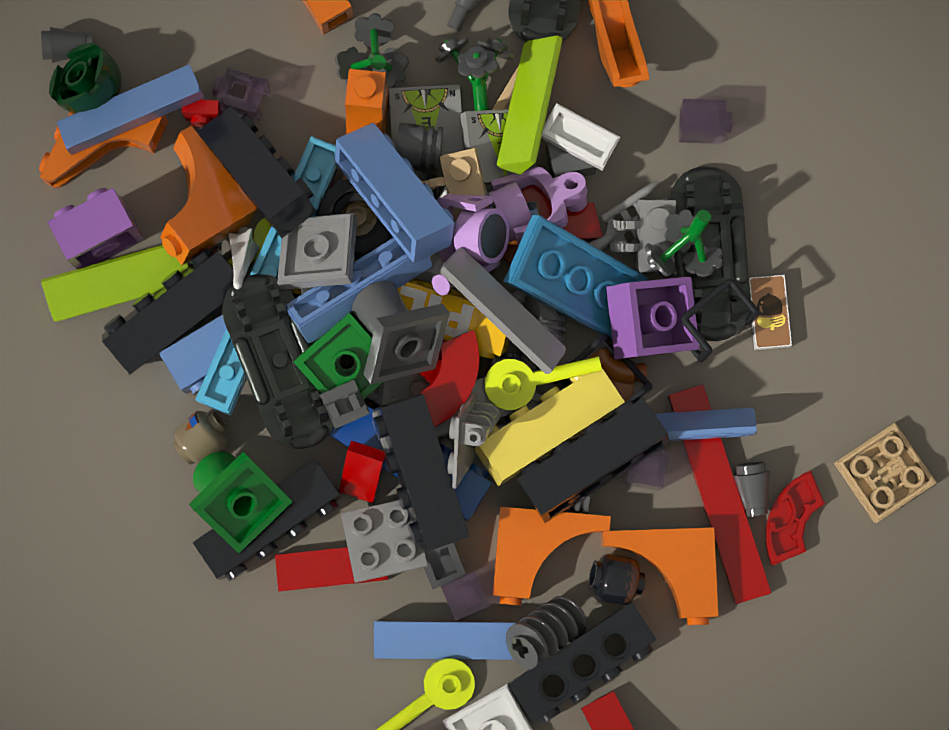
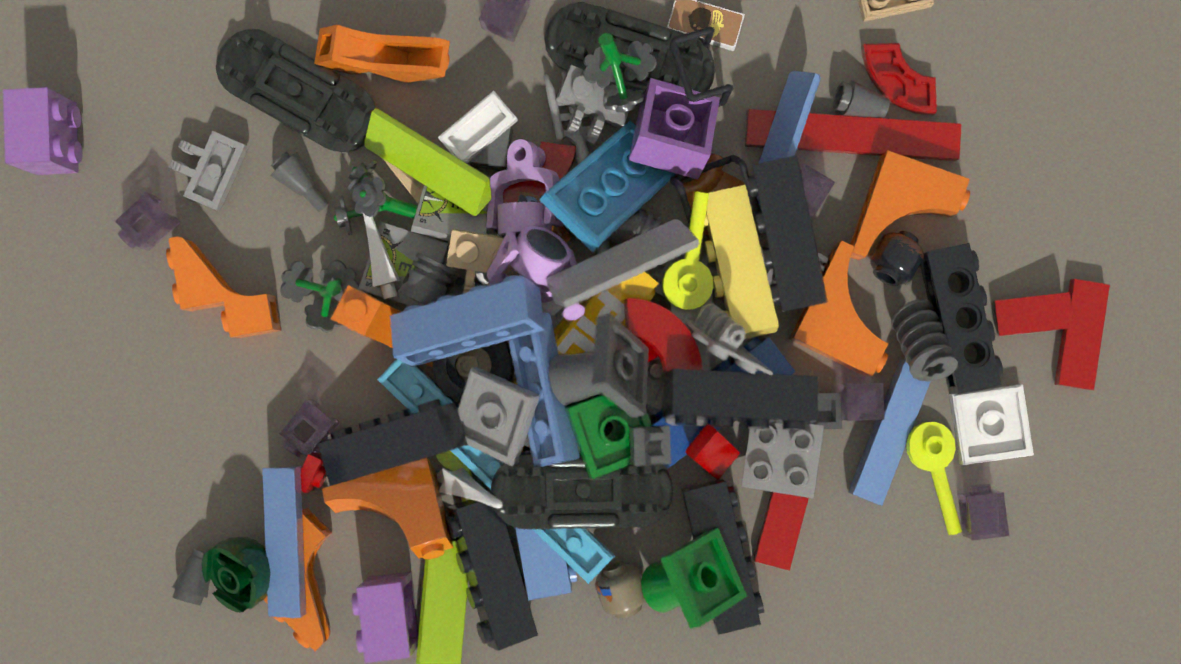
camera: 70 degrees left, 5 degrees up
(415, 102) = (382, 269): none -> white piece

